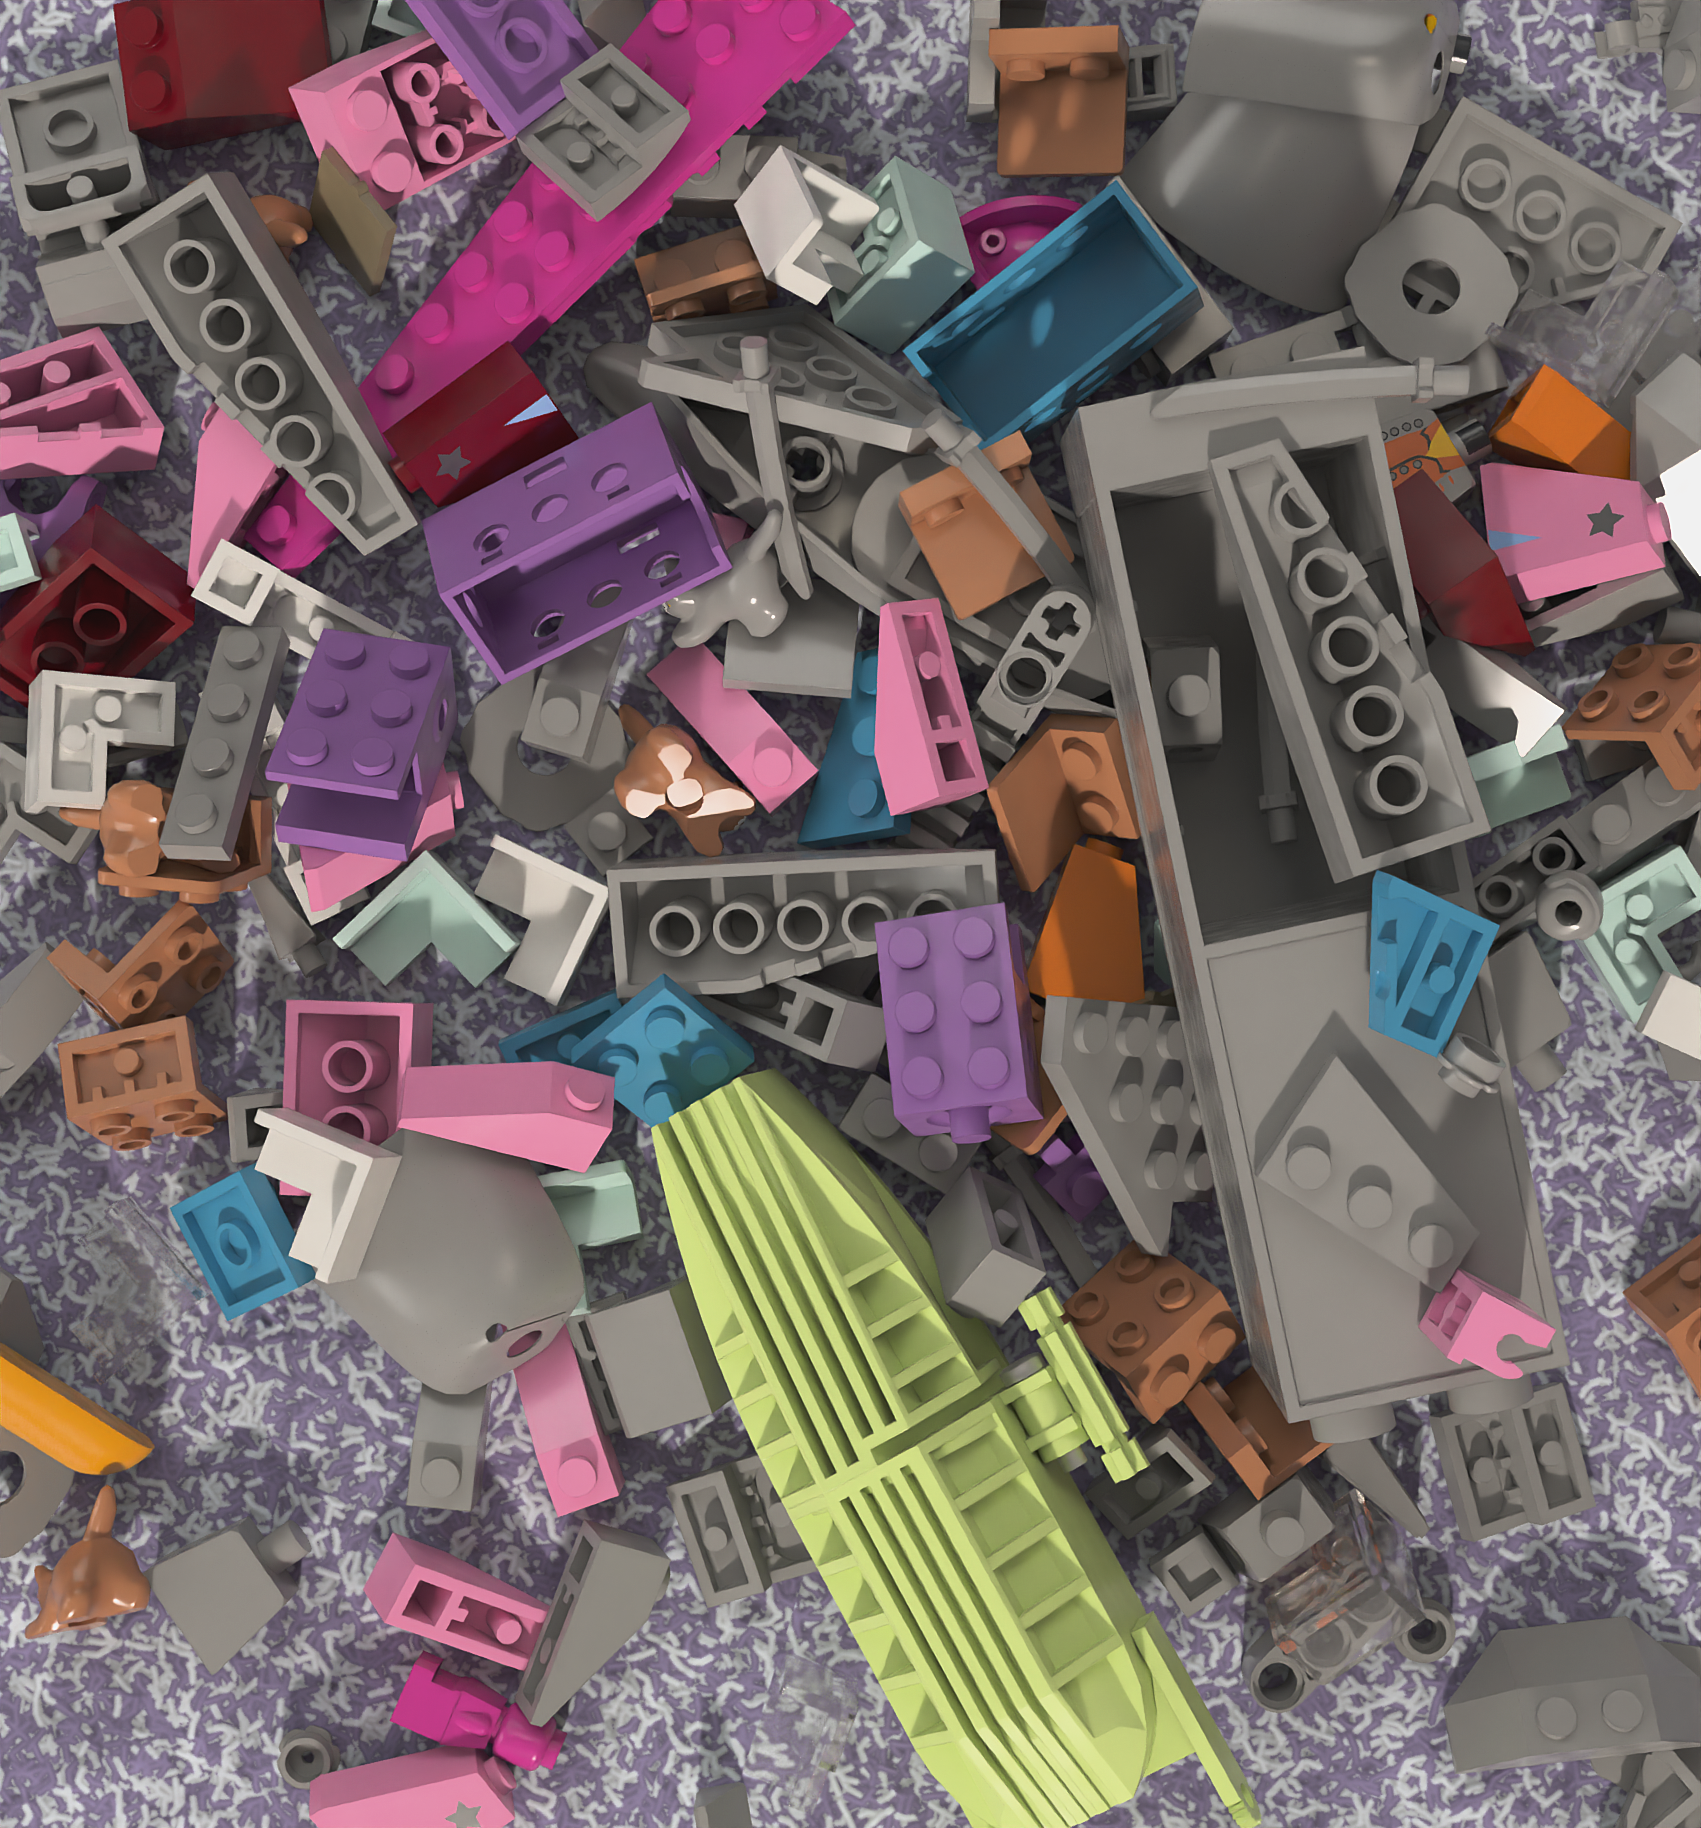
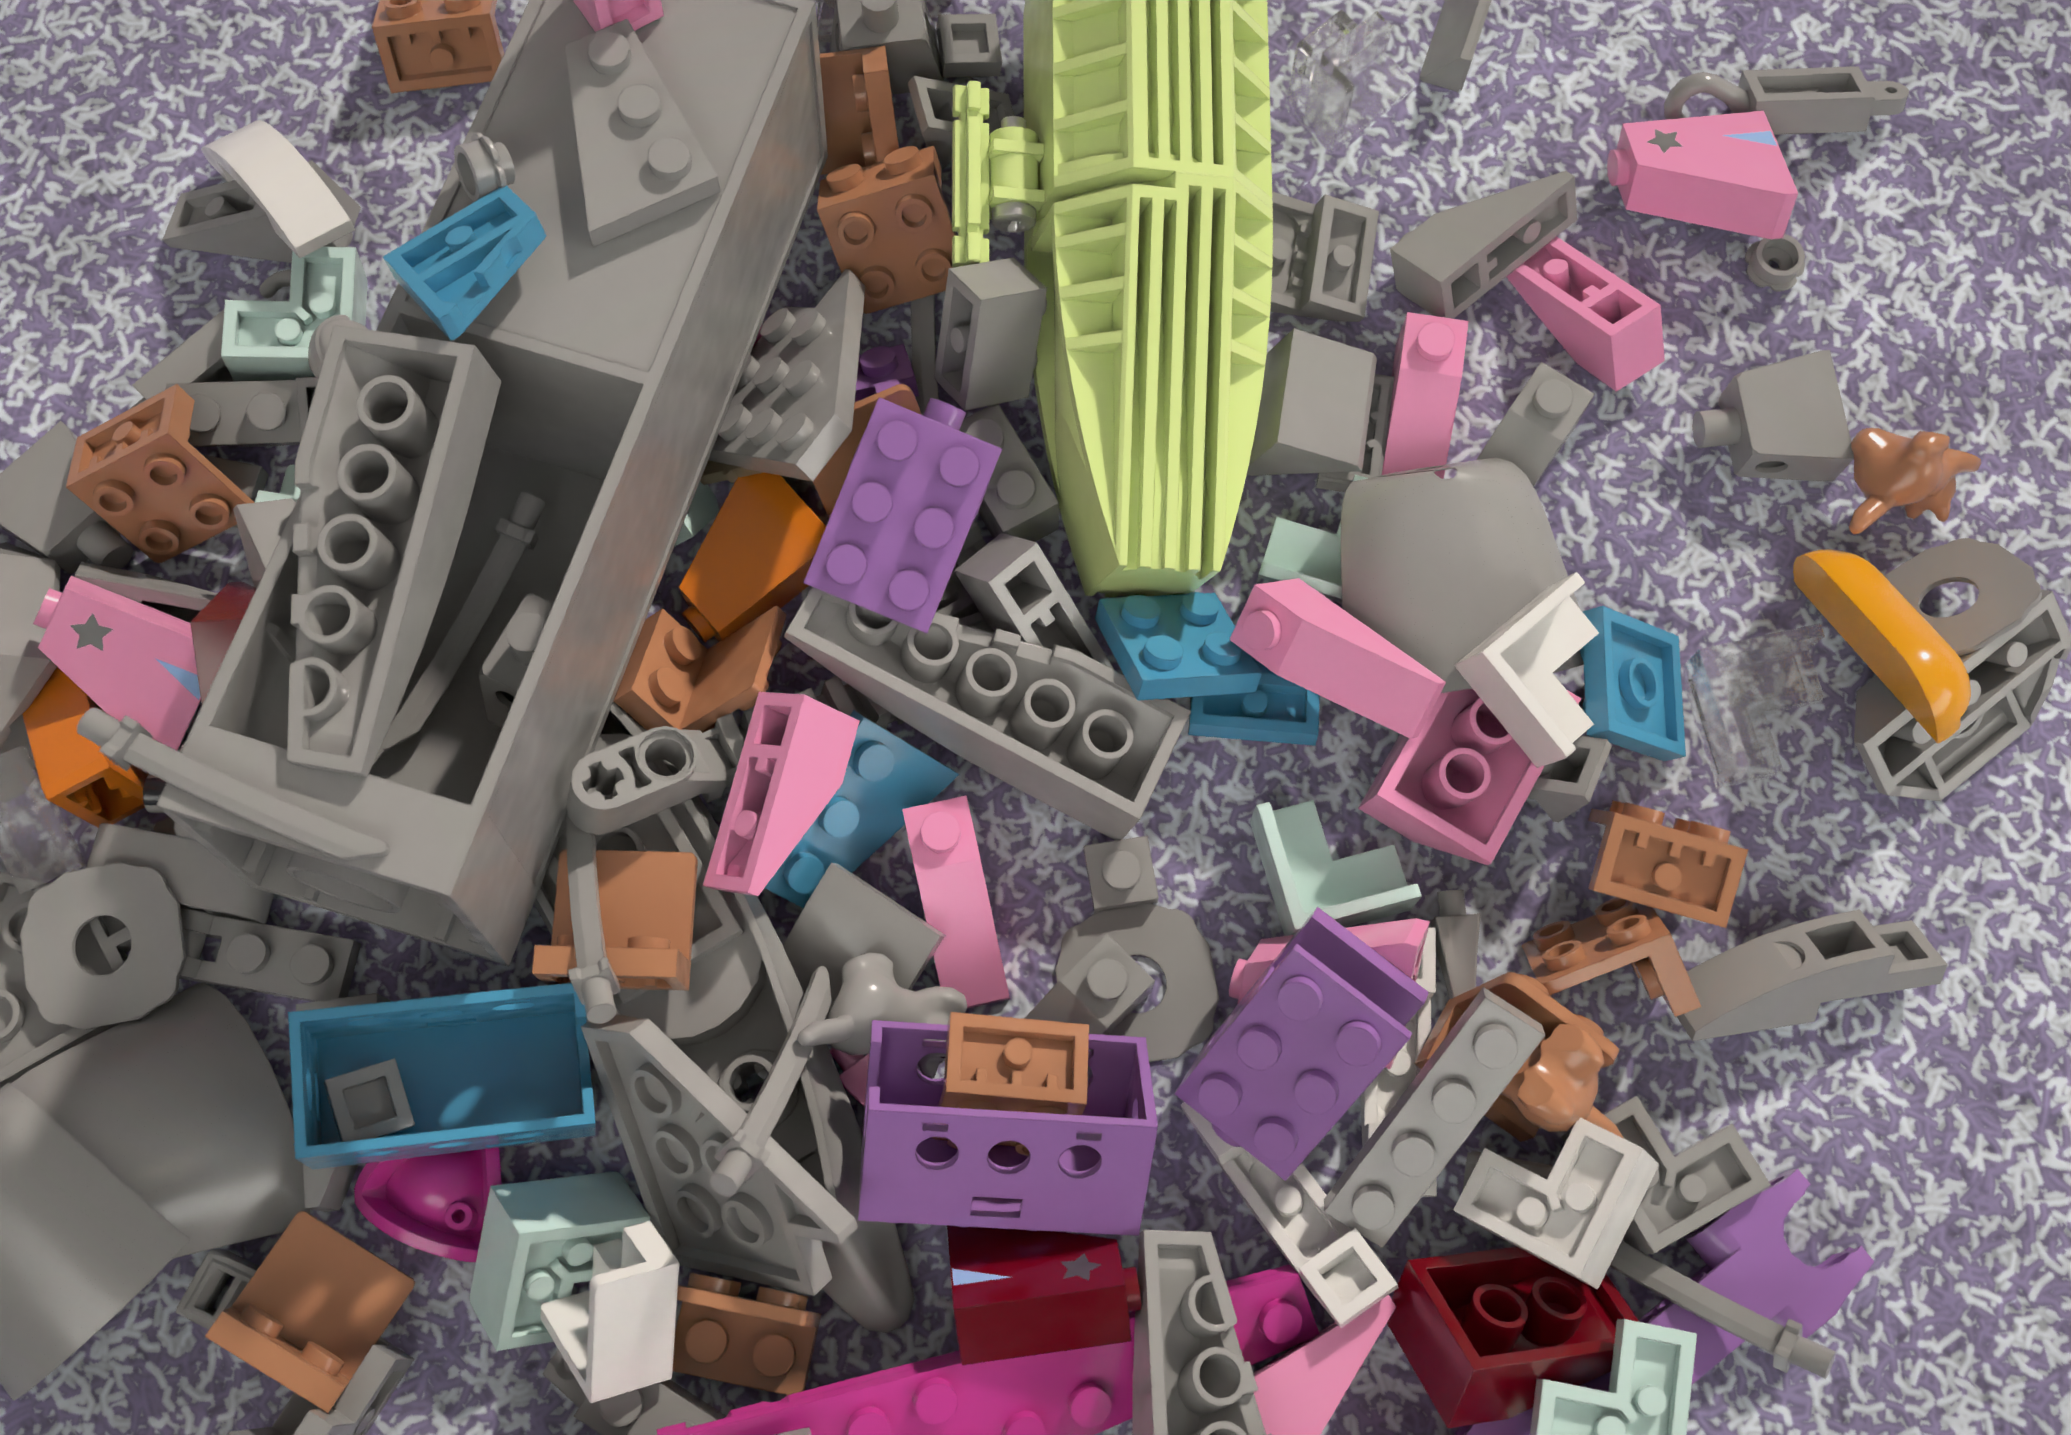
camera: 145 degrees left, 15 degrees down
(472, 1715) = (1623, 225): dark pink piece -> none
(563, 914) = (1198, 825): white panel -> none
(588, 587) = (1015, 1066): none -> nougat bracket
(672, 776) = (1036, 883): nougat animal -> none
(1108, 273) = (369, 1102): none -> light grey plate

